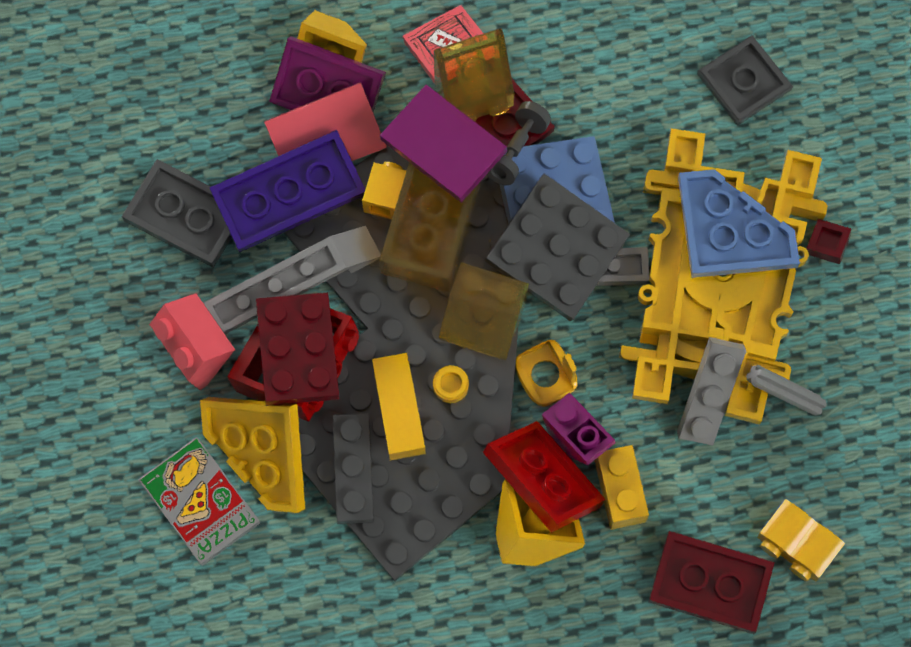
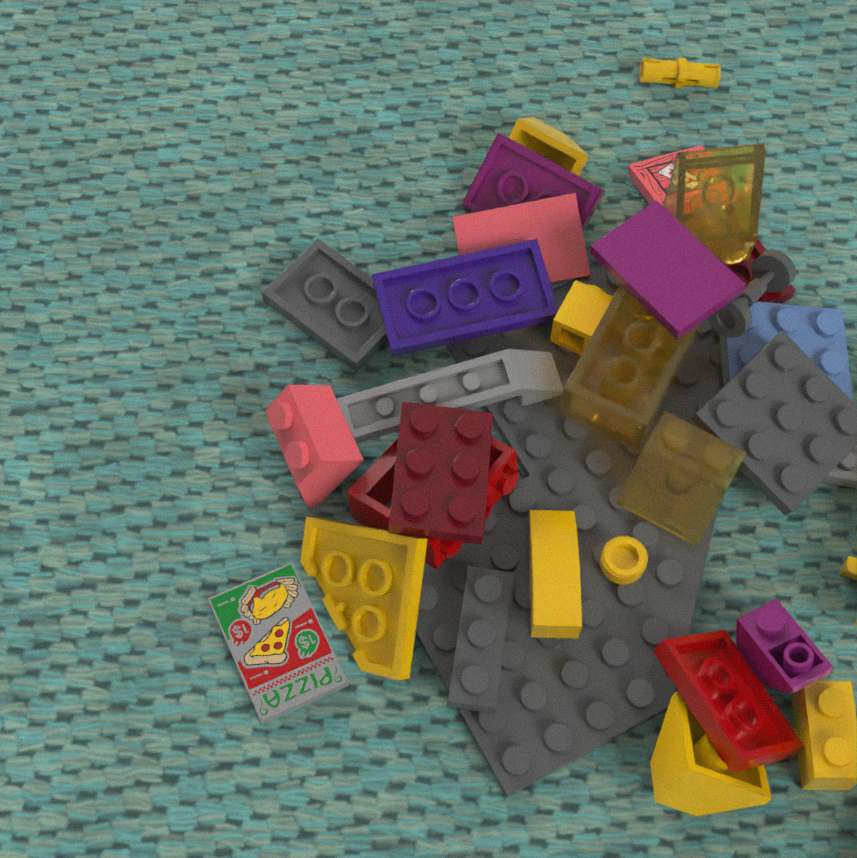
camera: 10 degrees right, 10 degrees down
(549, 352) = (771, 567): yellow piece -> none

